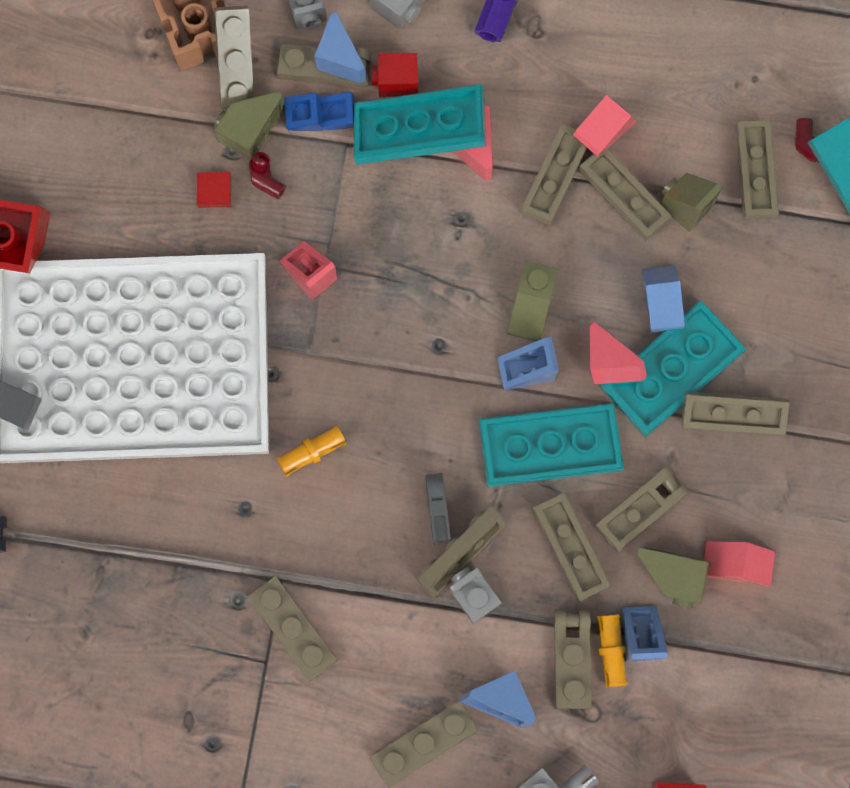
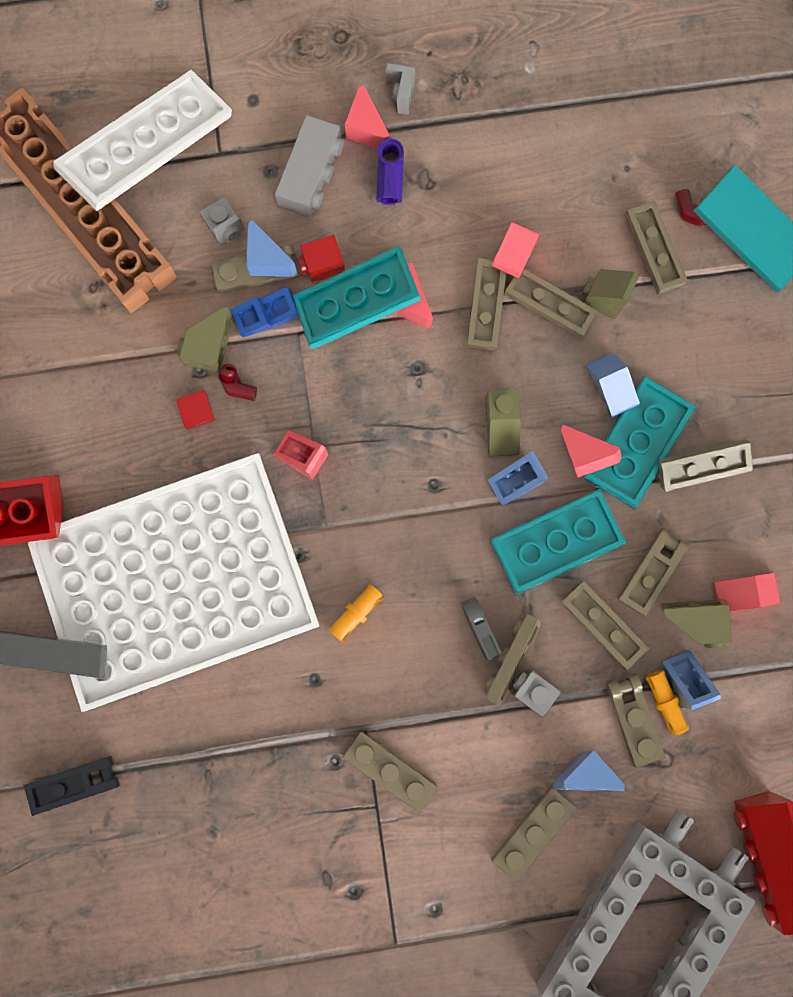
camera: 20 degrees left, 5 degrees up
(233, 54) = (173, 285): plate -> none

